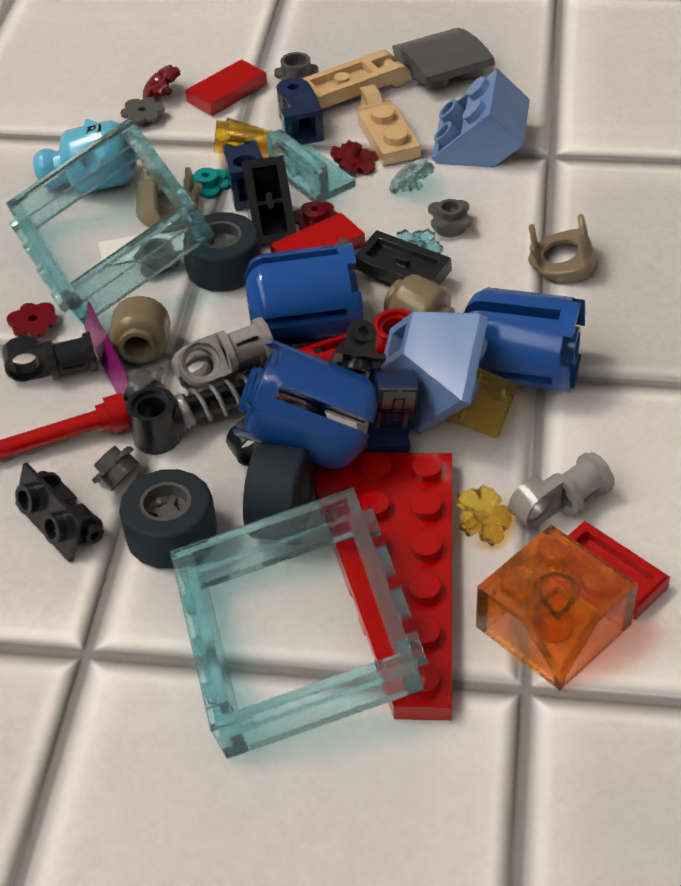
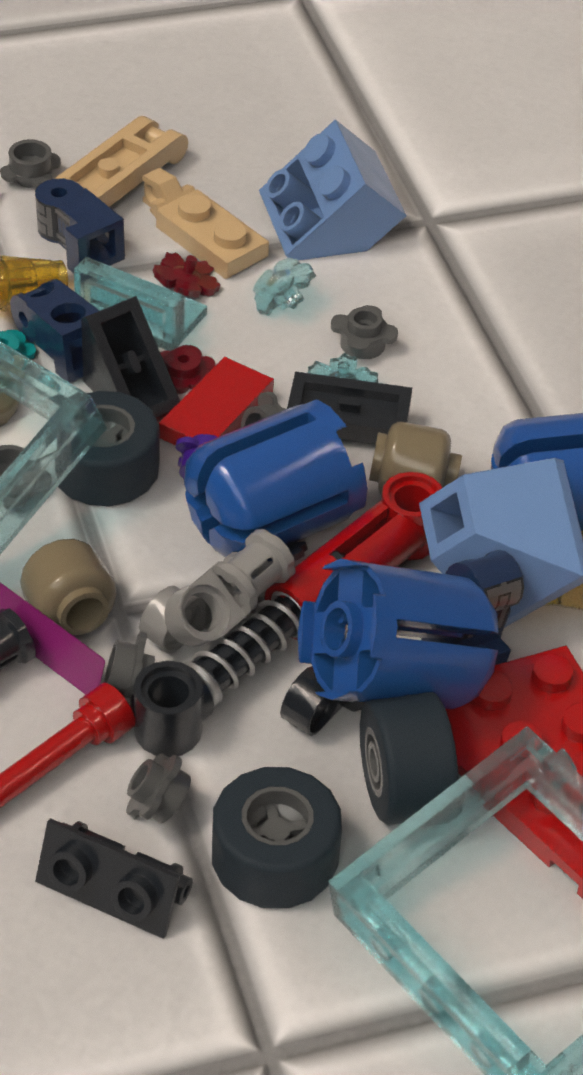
camera: 30 degrees left, 0 degrees up
(358, 349) = (421, 542): black hinge -> none
(444, 56) = (221, 110): dark grey slope -> none
(570, 271) = (544, 324): dark tan piece -> none

